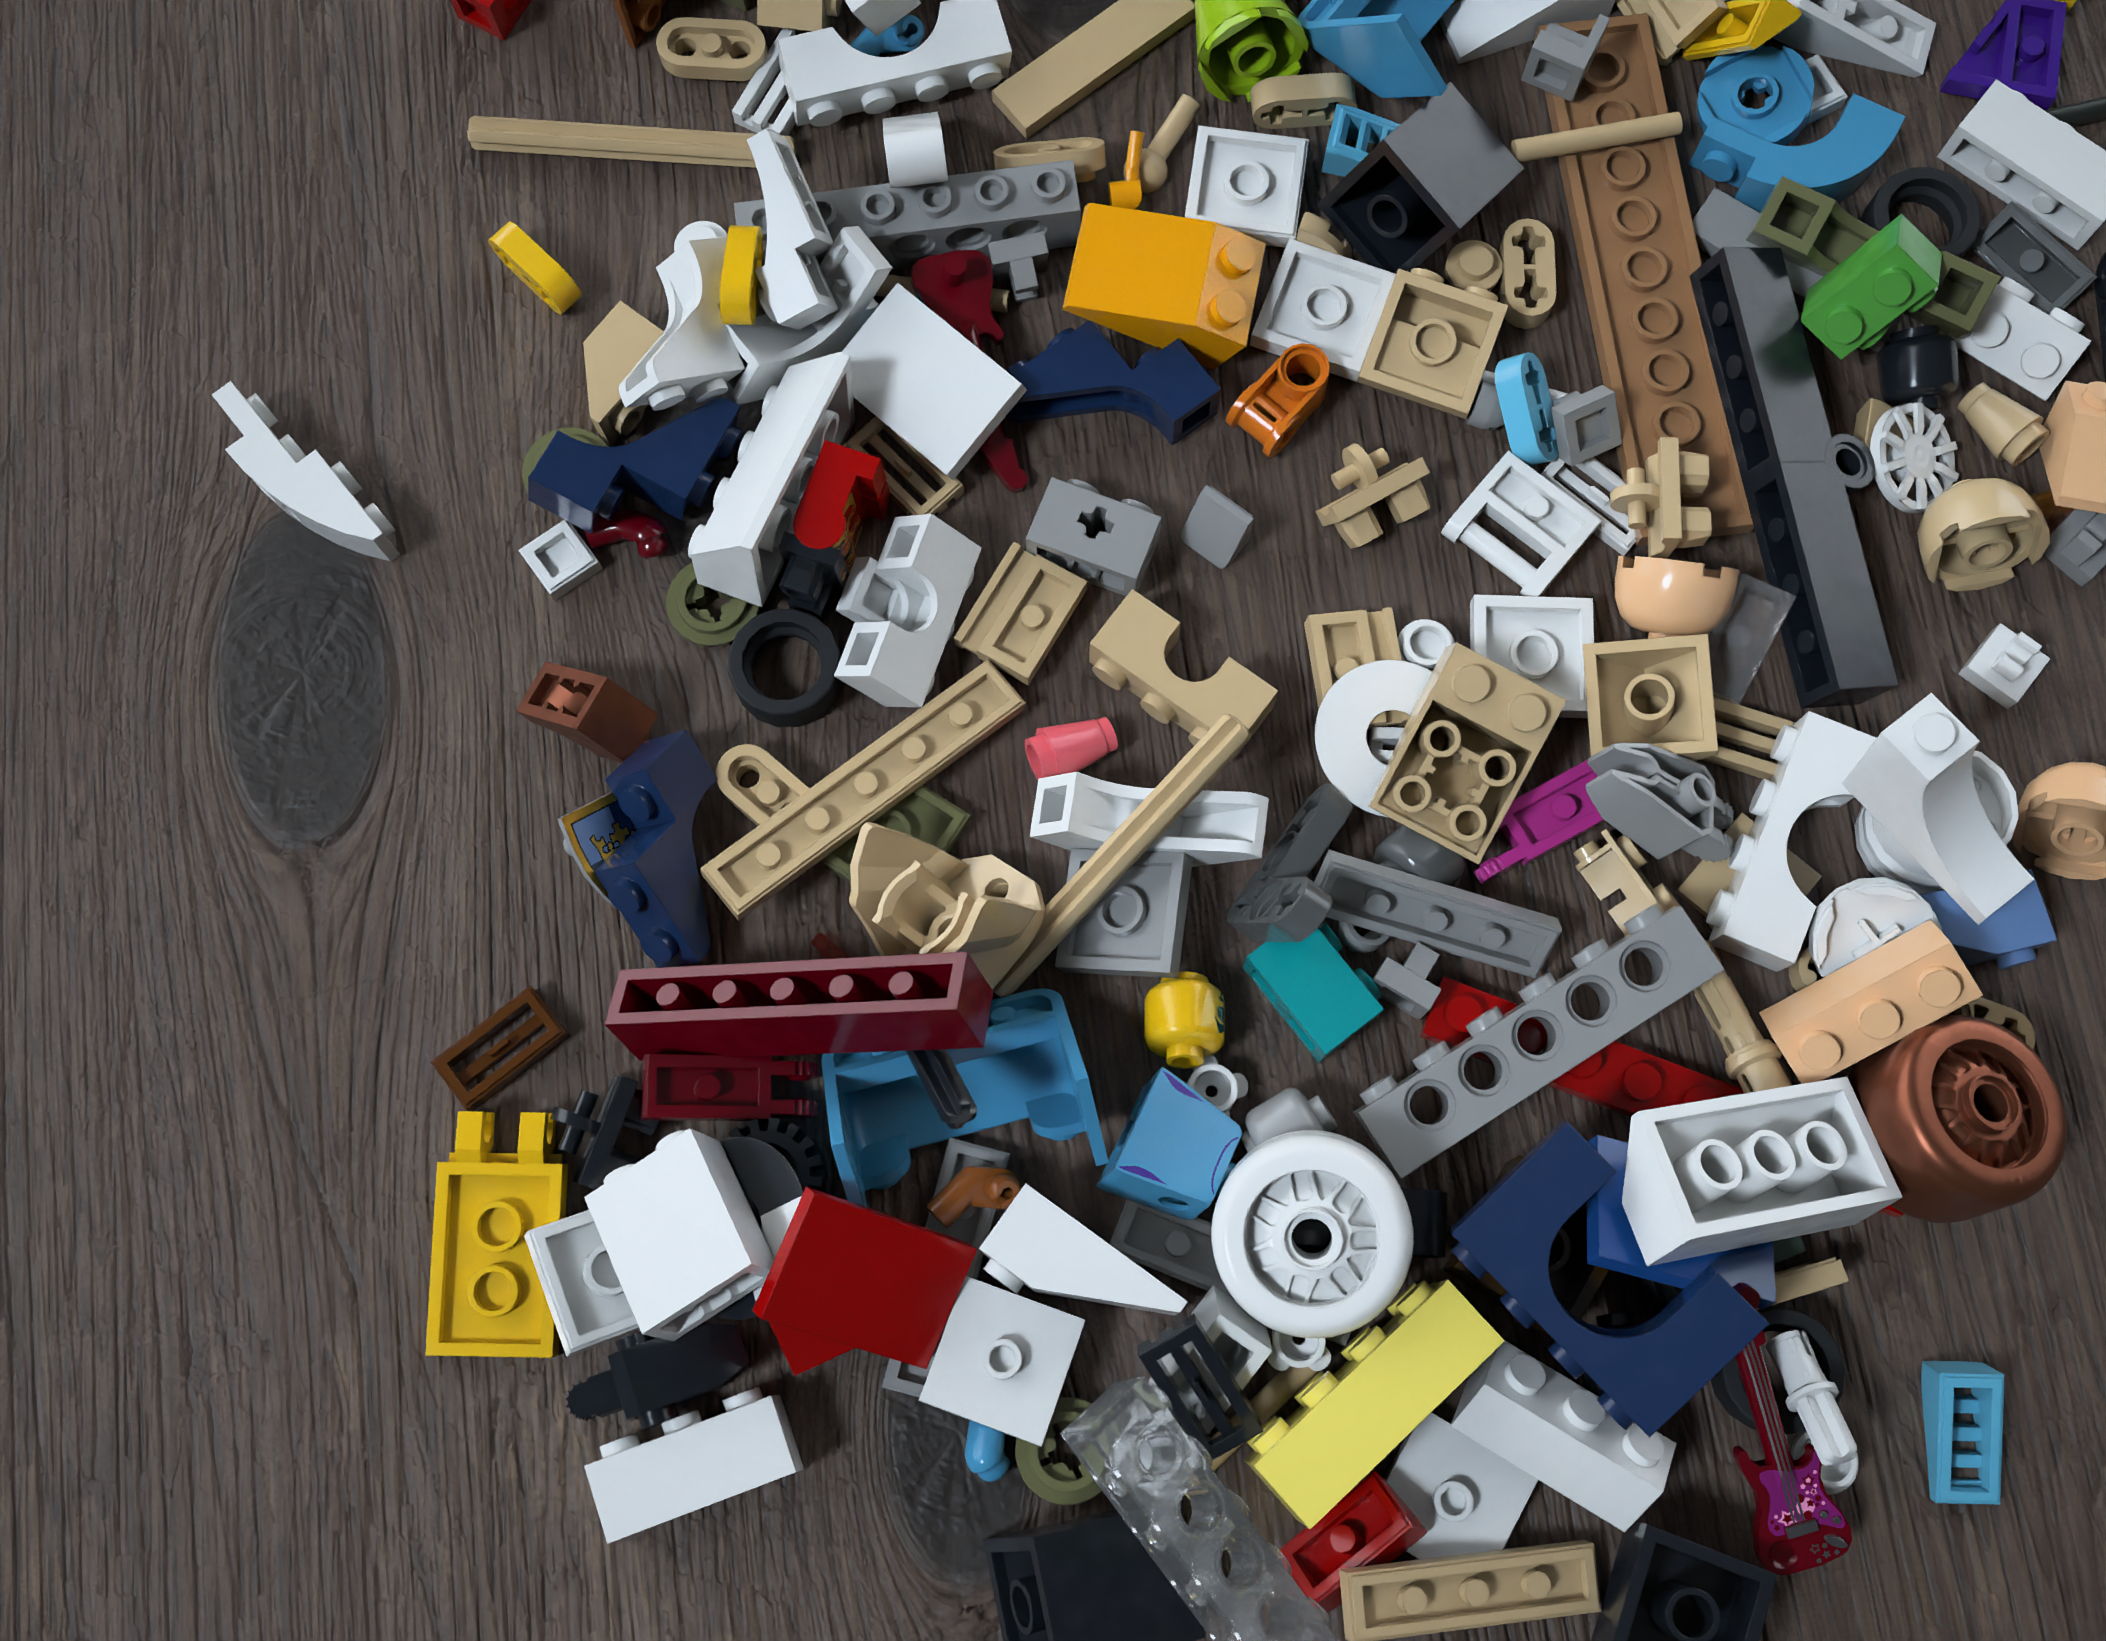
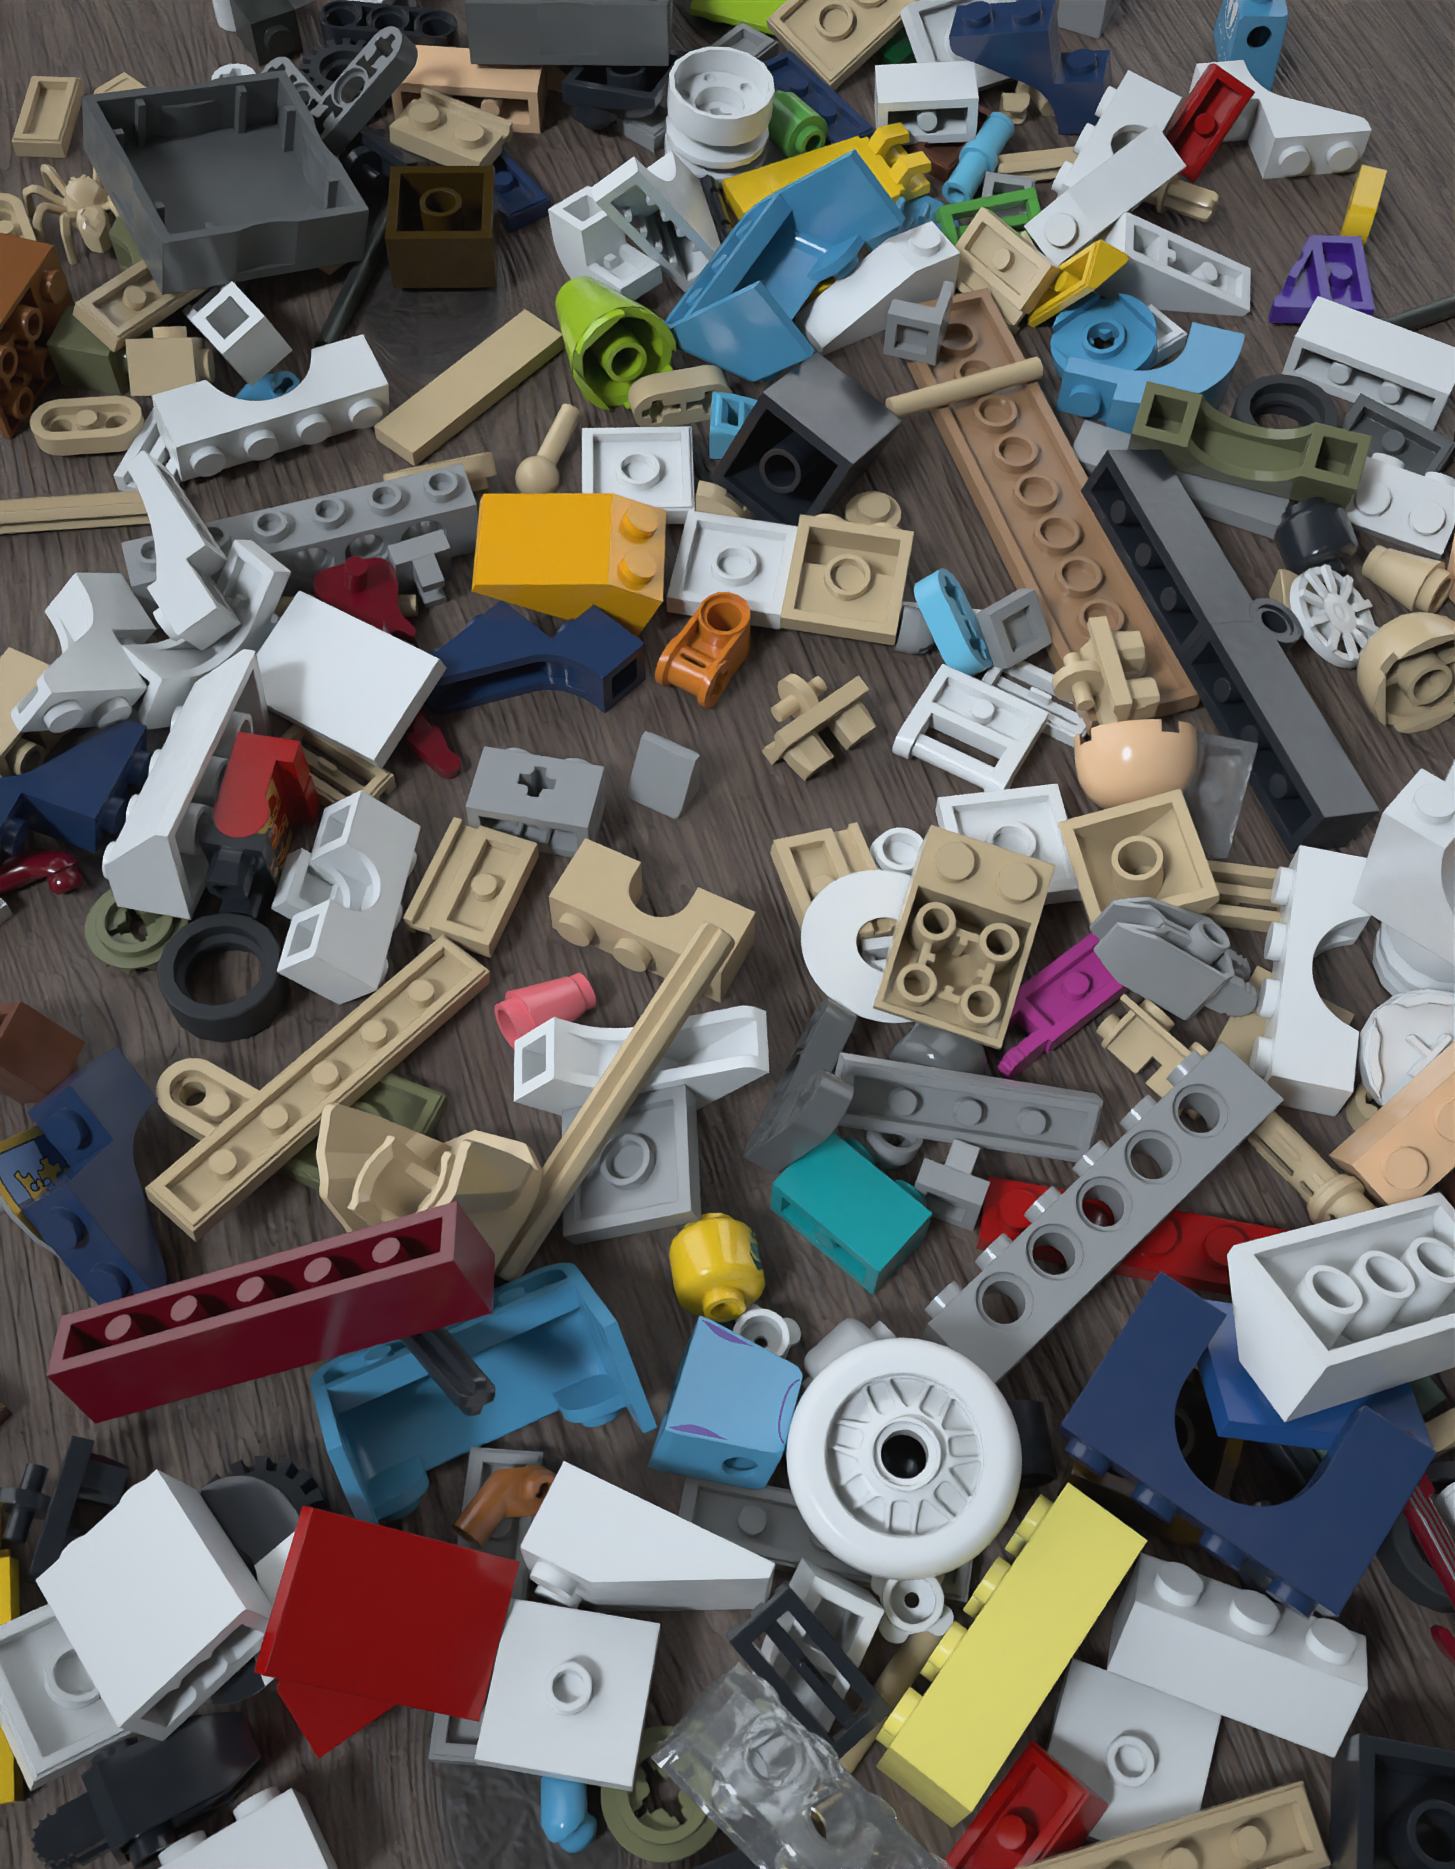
camera: 15 degrees left, 15 degrees down
(721, 1088) = (196, 1432): dark red hinge -> none
(738, 278) = (130, 600): yellow beam -> none
(914, 150) = (302, 470): white beam -> none
(1128, 192) = (524, 476): light orange hand -> none
(1539, 273) = (936, 513): tan beam -> none
(1873, 287) = (1255, 465): bright green brick -> none

